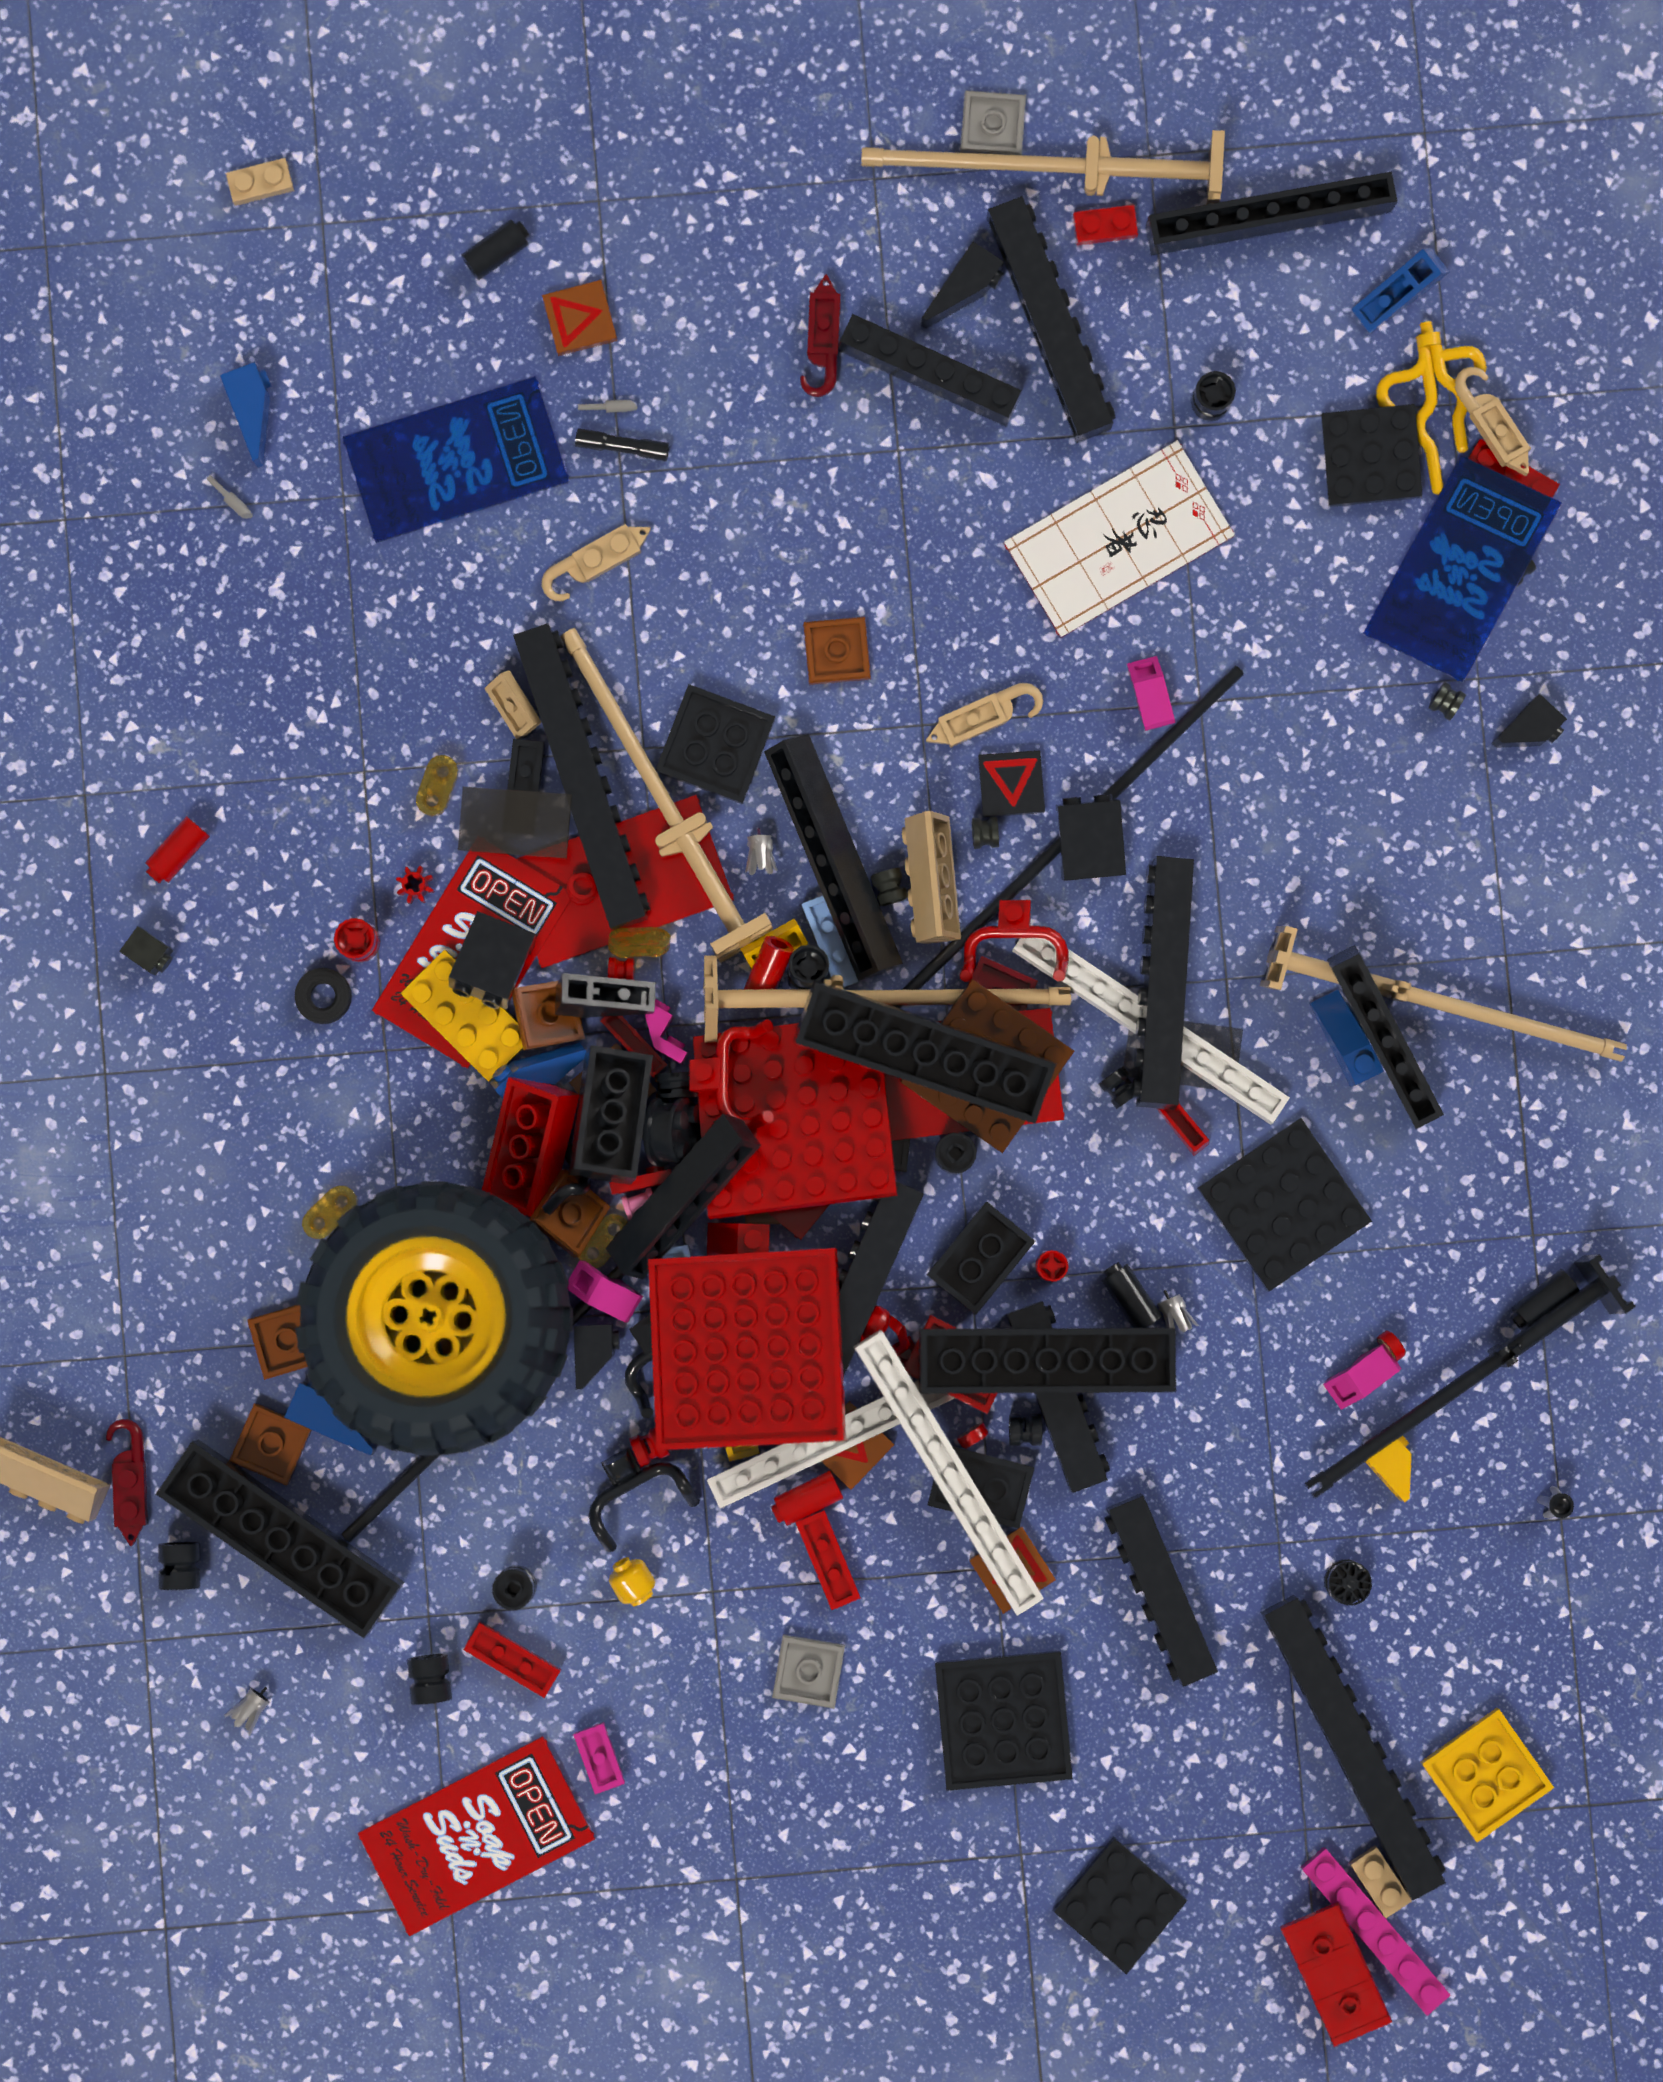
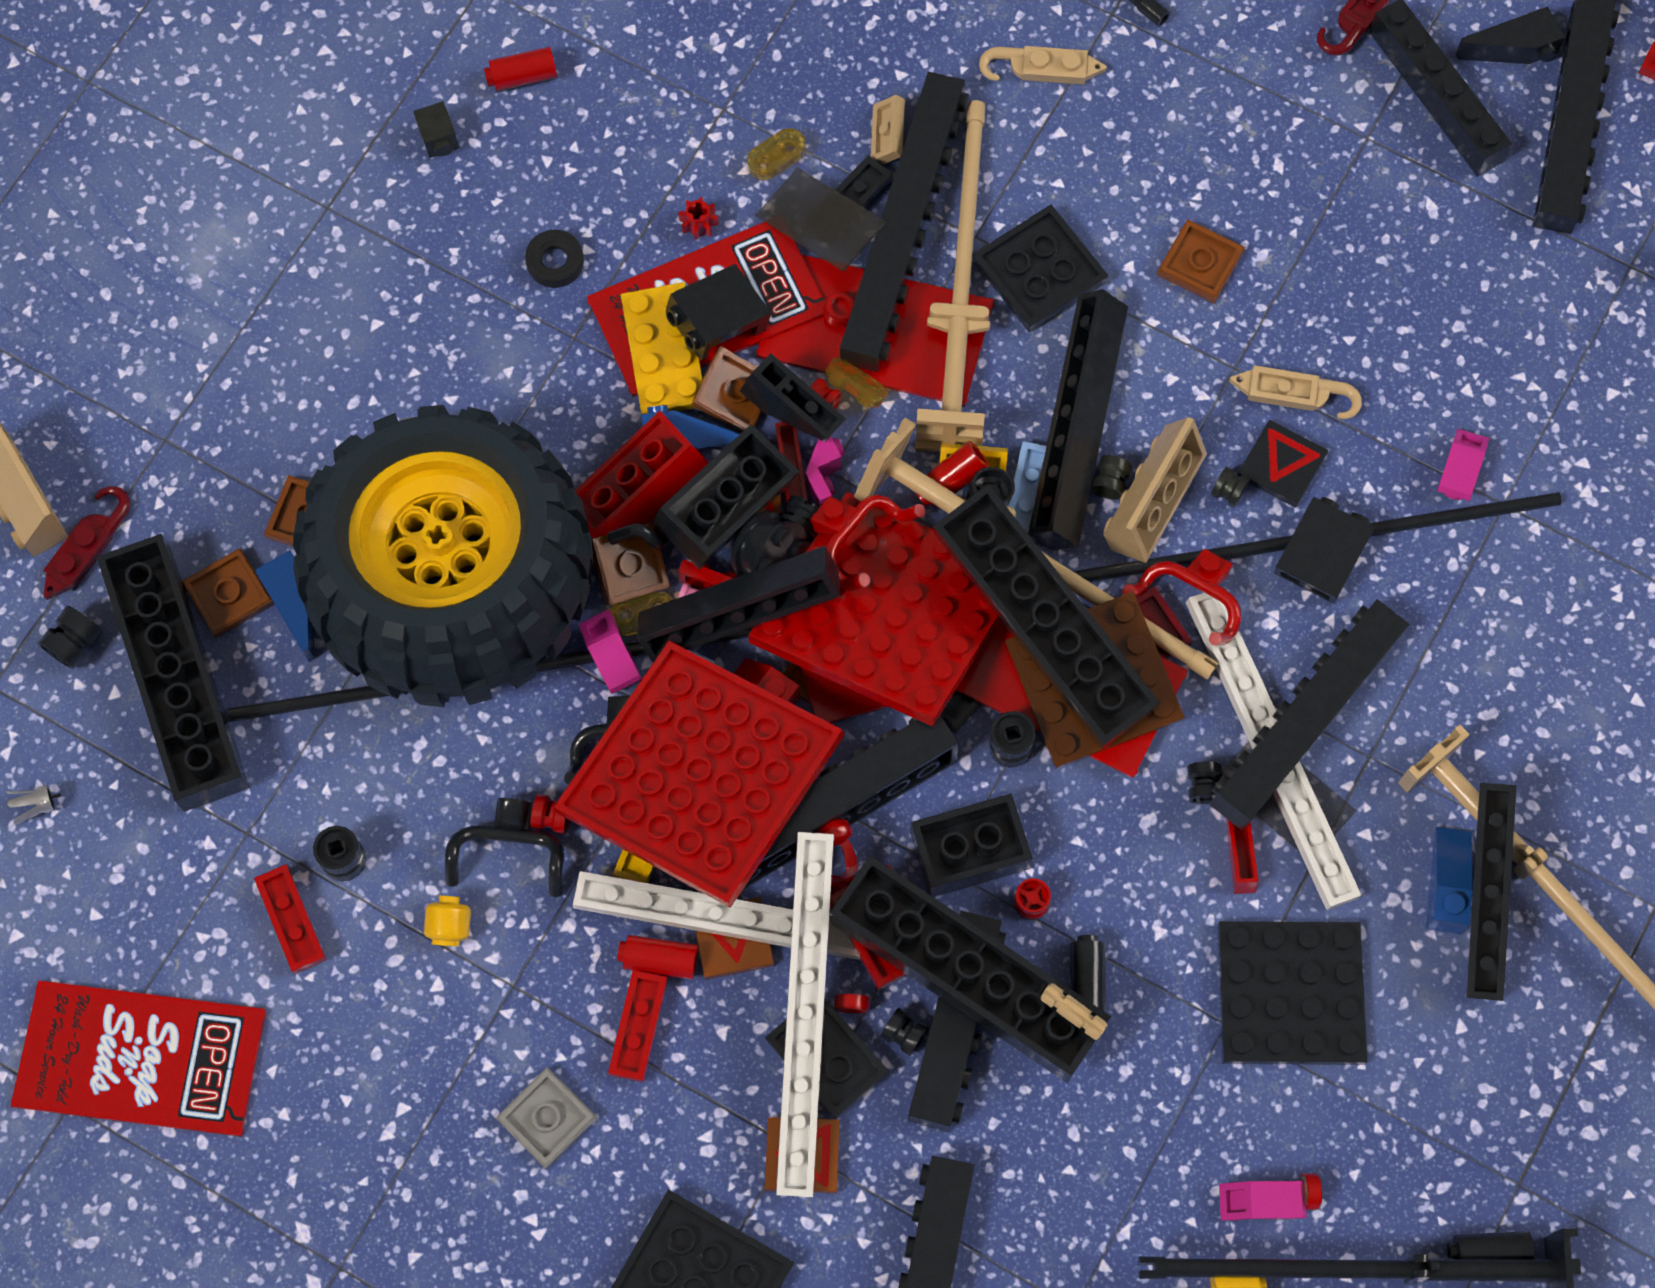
camera: 40 degrees right, 15 degrees down
(357, 940) = (616, 228): red wheel -> none
(429, 1679) = (205, 882): black wheel -> none
(593, 1350) = (562, 697): black slope -> none
(599, 1758) = (299, 1062): dark pink plate -> none
(760, 853) = (1019, 372): flat silver piece -> none
(1119, 539) = (1519, 325): white piece -> none
(1147, 1345) = (1073, 1011): none -> tan axle
(1176, 1309) = (1122, 1018): flat silver piece -> none

